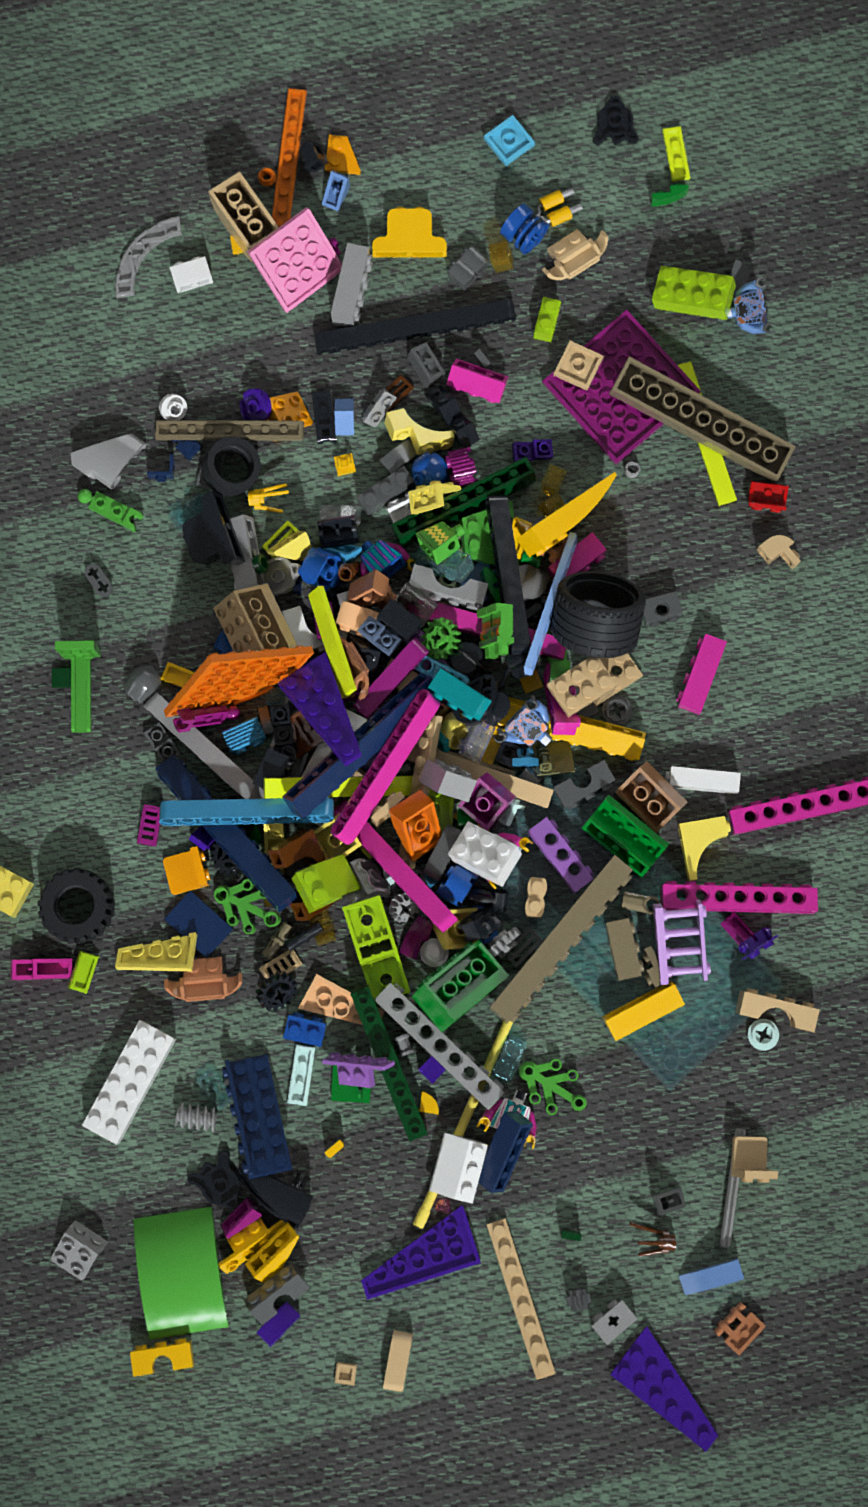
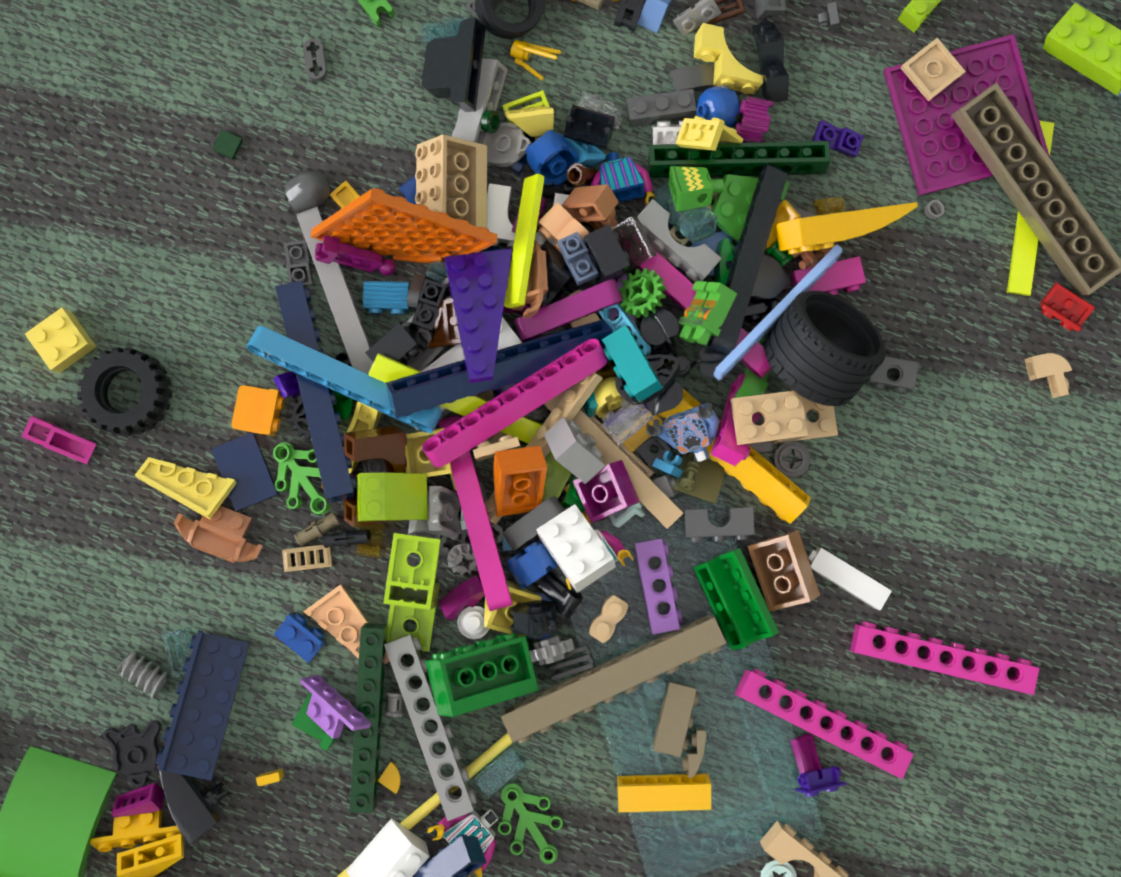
camera: 25 degrees right, 5 degrees up
(80, 654) = (256, 134): bright green bracket -> none
(83, 972) = (100, 463): lime tile -> none
(129, 1082) = (91, 603): white brick -> none
(148, 808) = (237, 339): magenta slope -> none
(276, 991) = (288, 583): black gear -> none
(301, 1075) = (274, 681): light aqua tile -> none
(344, 464) = (631, 59): yellow tile -> none
(432, 1069) = (409, 744): dark purple panel -> none
(477, 381) = (815, 35): dark pink brick -> none
(531, 683) = (715, 387): yellow tile -> none
(553, 480) = (844, 180): clear yellow brick -> none
(637, 902) = (715, 677): dark tan piece -> none
(662, 934) = (724, 724): lavender fence -> none
(696, 837) = (811, 636): light yellow arch -> none
(701, 674) = (901, 464): dark pink brick -> none

